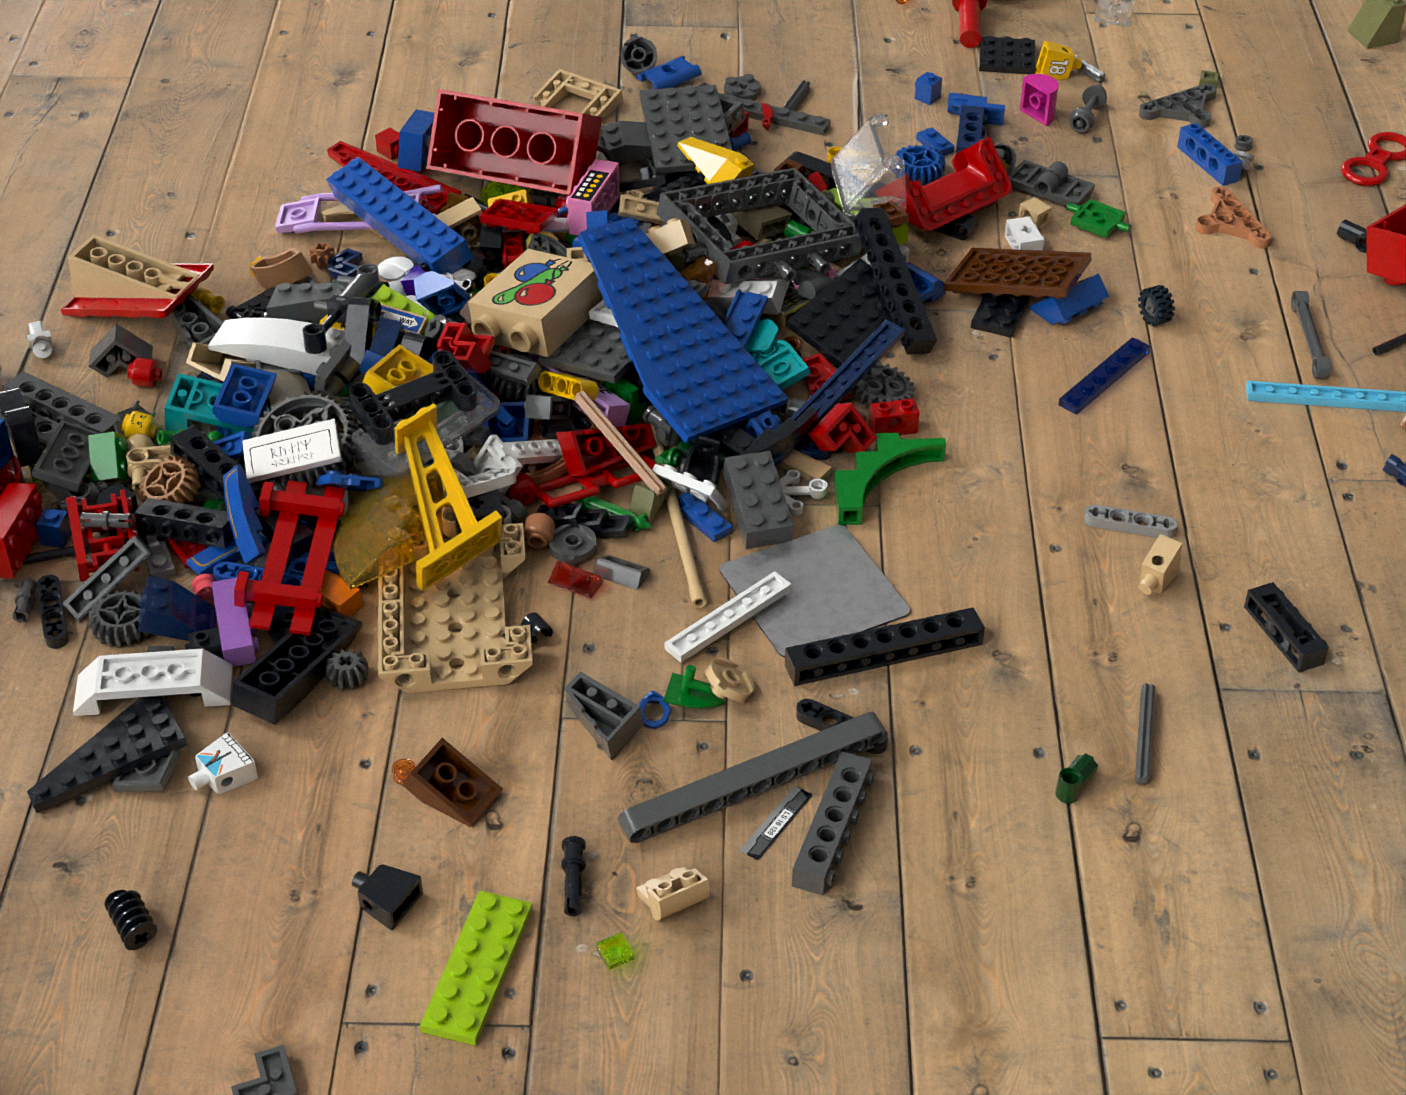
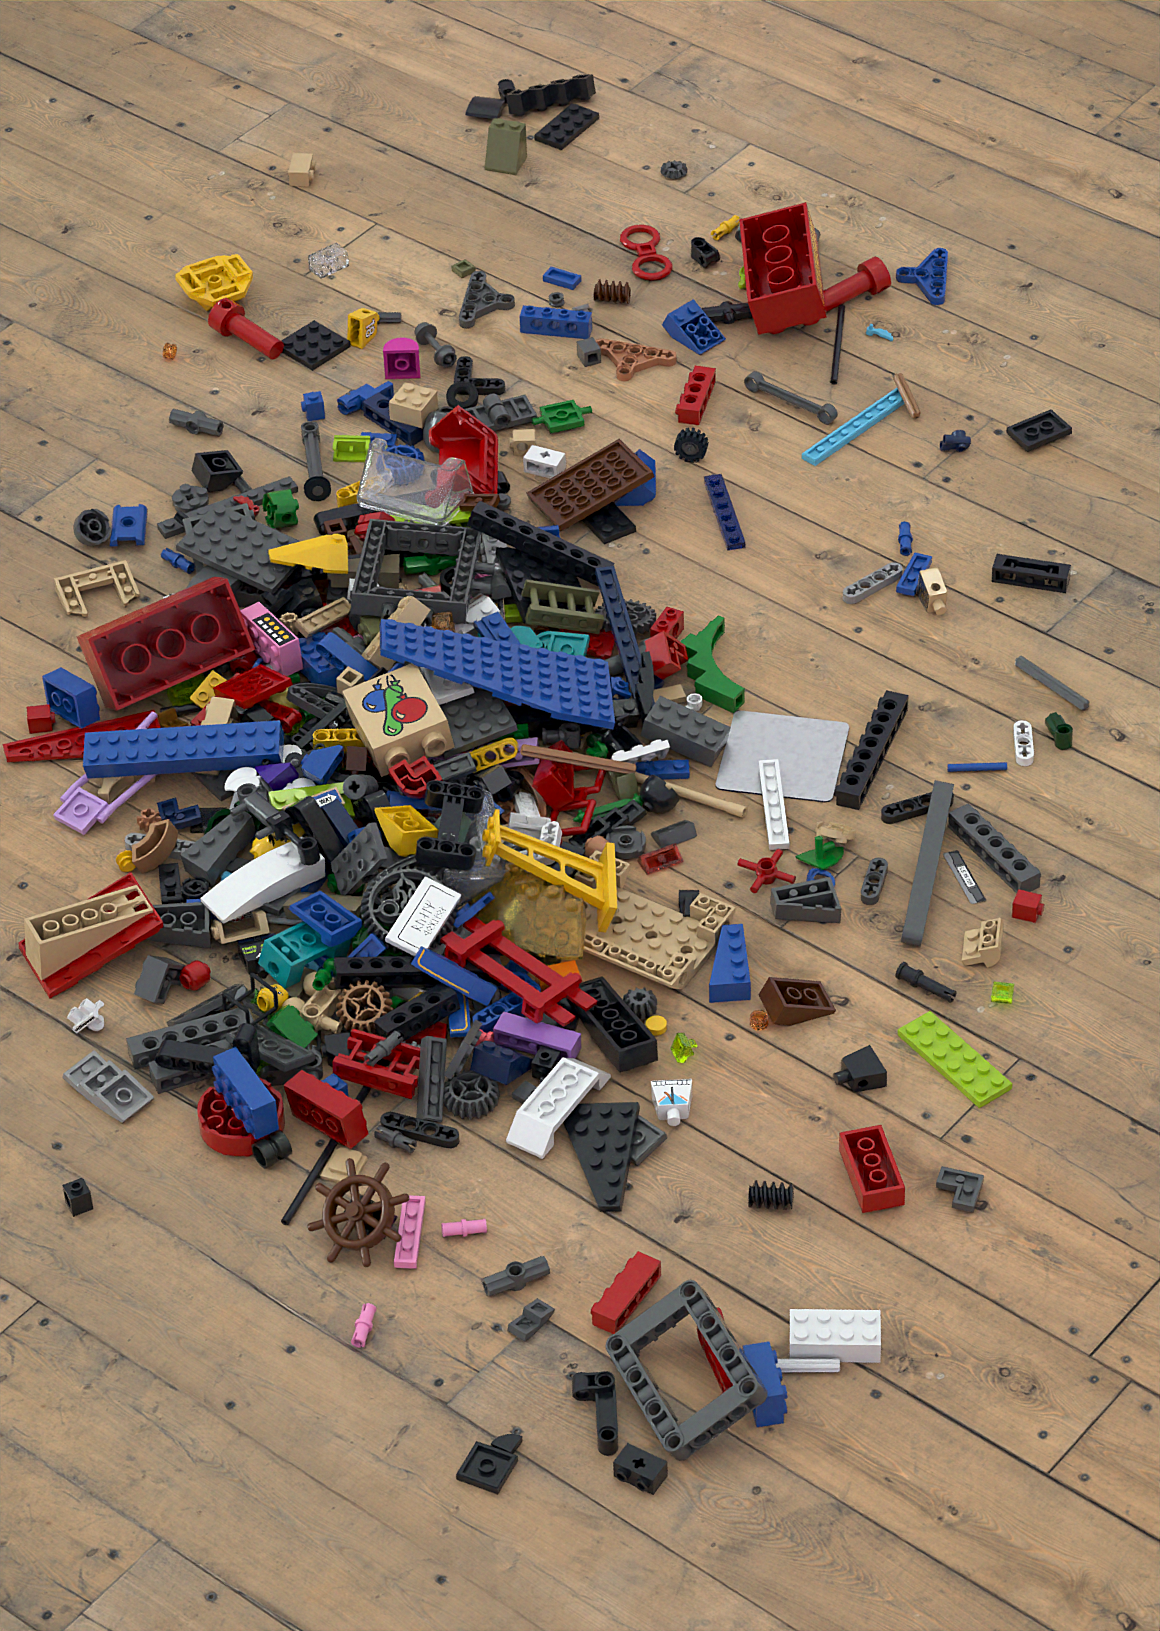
camera: 50 degrees left, 0 degrees up
(103, 399) = (199, 1011): none -> dark grey plate
(125, 408) = (236, 1002): none -> black piece
(136, 571) = (464, 1050): none -> dark grey plate
(228, 982) = (871, 1168): none -> red brick
(309, 734) = (683, 1047): none -> clear neon green tile
(332, 699) = (656, 1025): none -> yellow tile
(459, 705) = (730, 970): none -> blue wedge
(625, 661) = (766, 871): none -> red bar
(650, 528) = (657, 796): none -> black cylinder
(675, 752) = (875, 887): none -> dark grey beam
(770, 897) = (1027, 906): none -> red brick
(776, 130) = (280, 508): none -> green brick
(784, 78) = (216, 469): none -> black slope
(808, 335) = (562, 618): none -> olive fence
(829, 135) = (316, 487): none -> dark grey piece
(834, 46) = (196, 422): none -> dark grey piece
(905, 131) = (350, 448): none -> lime hinge
(946, 241) = (504, 502): none -> dark grey plate
(953, 743) = (977, 767): none -> blue bar
(983, 122) = (413, 404): none -> tan brick
(1023, 769) = (1026, 737): none -> white beam
(1046, 145) = (458, 387): none -> black tyre
(1071, 151) = (490, 385): none -> black beam
(1192, 540) = (909, 580): none -> blue plate
(1199, 190) = (588, 352): none -> dark grey brick
(1220, 510) = (905, 538): none -> blue pin
(1232, 277) = (696, 395): none -> red brick
(1275, 132) = (562, 278): none -> blue tile
(1294, 163) = (613, 292): none -> reddish brown piece
(1316, 229) = (692, 328): none -> blue slope

